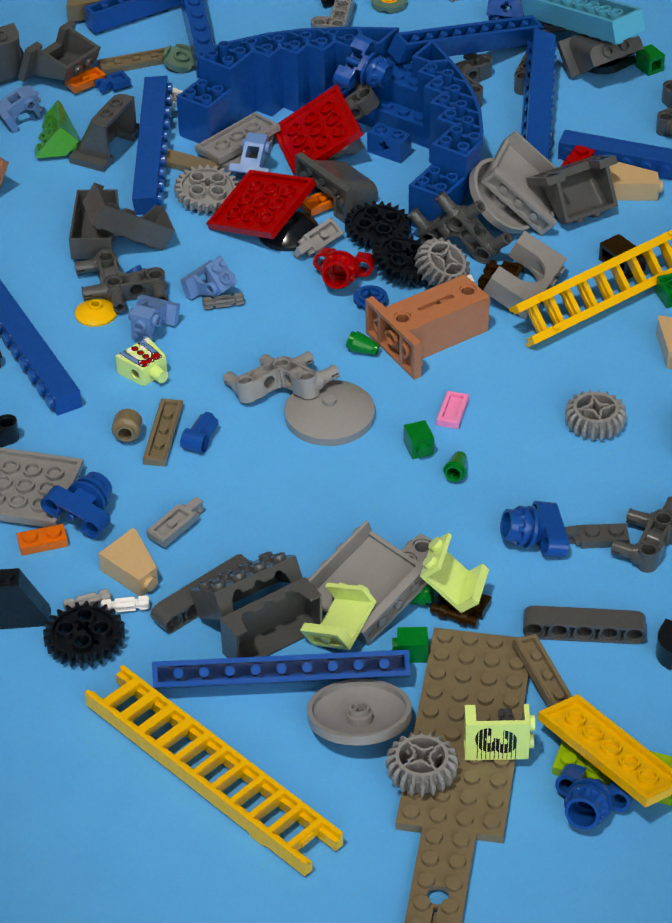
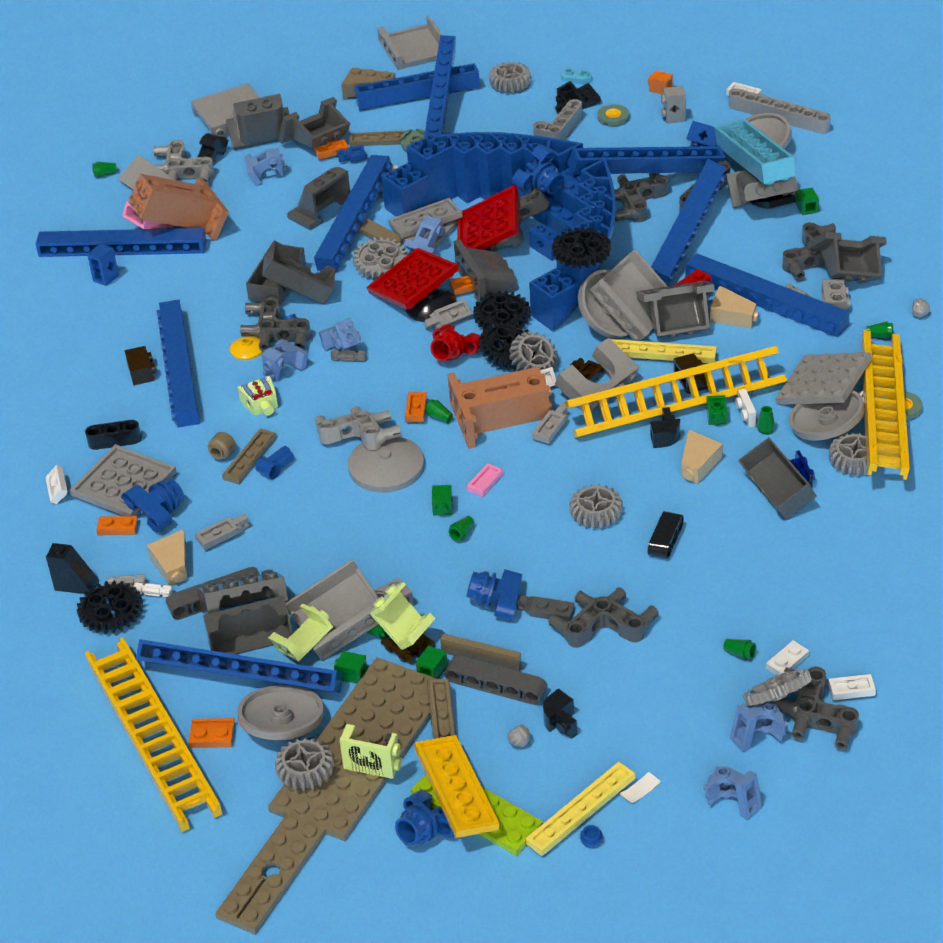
camera: 20 degrees right, 0 degrees up
(58, 134) = (287, 194): bright green wedge -> none
(282, 753) = (211, 733): none -> orange plate
(333, 343) = (416, 407): none -> orange plate
(369, 290) = (461, 369): blue gear -> none
(463, 224) = (561, 321): dark grey pin -> none
(465, 135) = (581, 247): none -> black gear
(497, 337) = (551, 424): none -> light grey hinge
(503, 619) = (432, 662): none -> green brick
(524, 596) = (481, 652): none -> dark tan tile
(584, 237) = (665, 351): none -> light yellow plate
(627, 320) = (665, 432): none -> black brick
(644, 680) = (519, 736): none -> light grey piece

